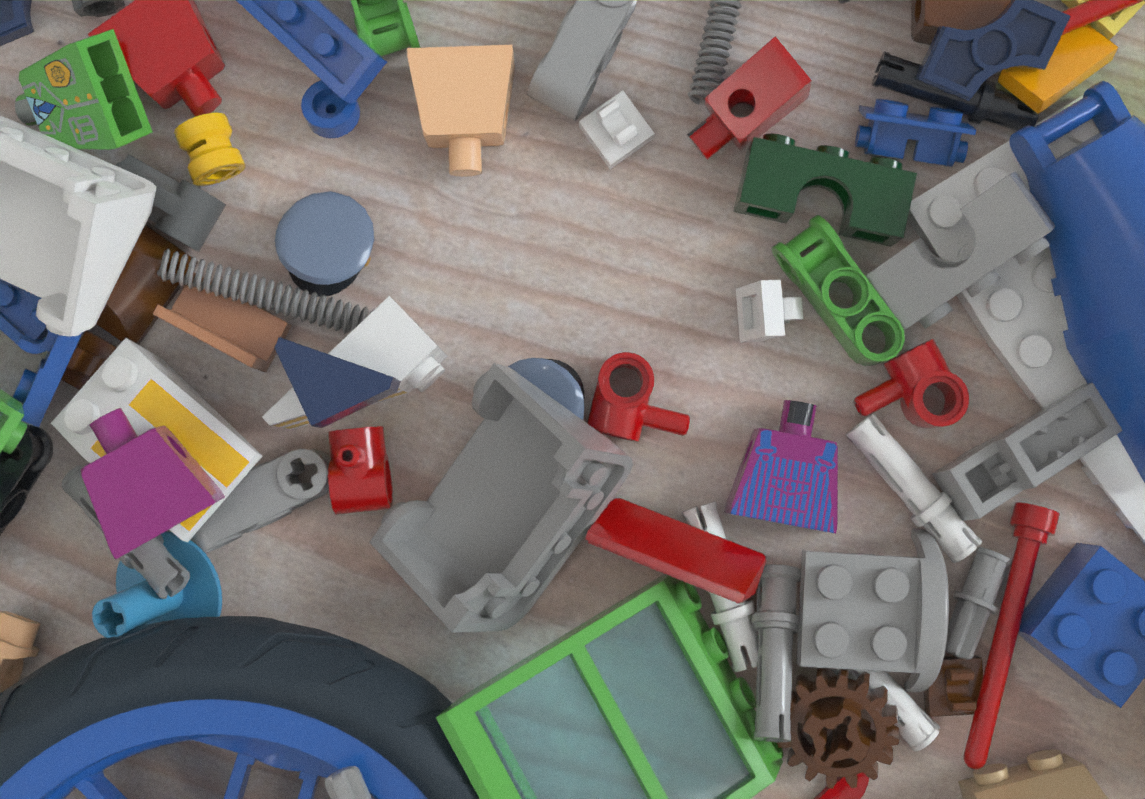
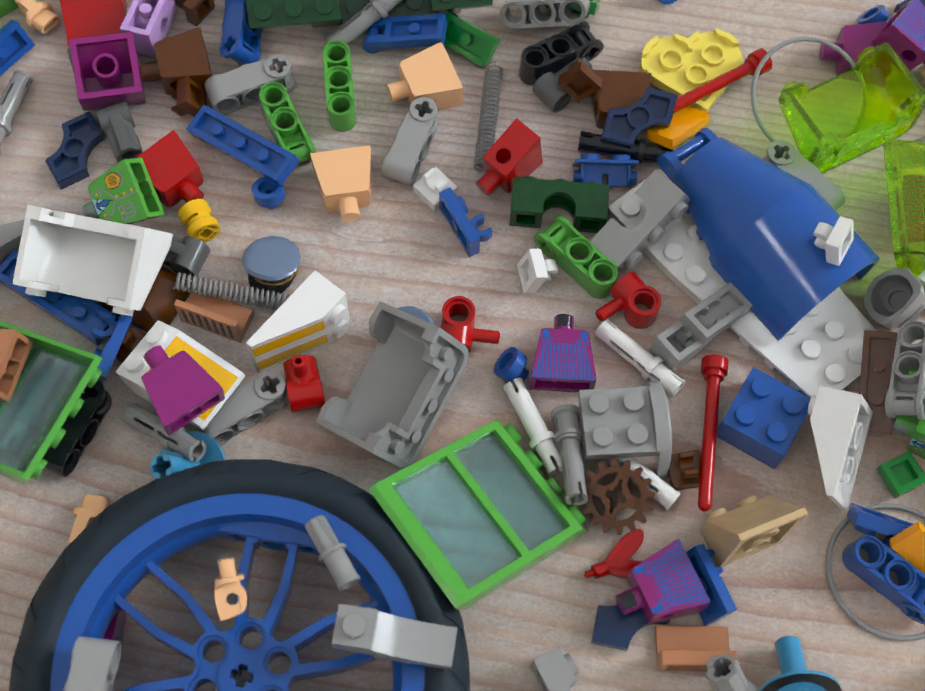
camera: 10 degrees left, 20 degrees down
(329, 385) = (289, 312): dark blue slope -> none
(644, 181) = (455, 212): none -> blue plate
(678, 550) = (503, 404): red slope -> none
(700, 476) = (511, 365): none -> blue tile
(976, 602) = (688, 417): light grey axle -> none

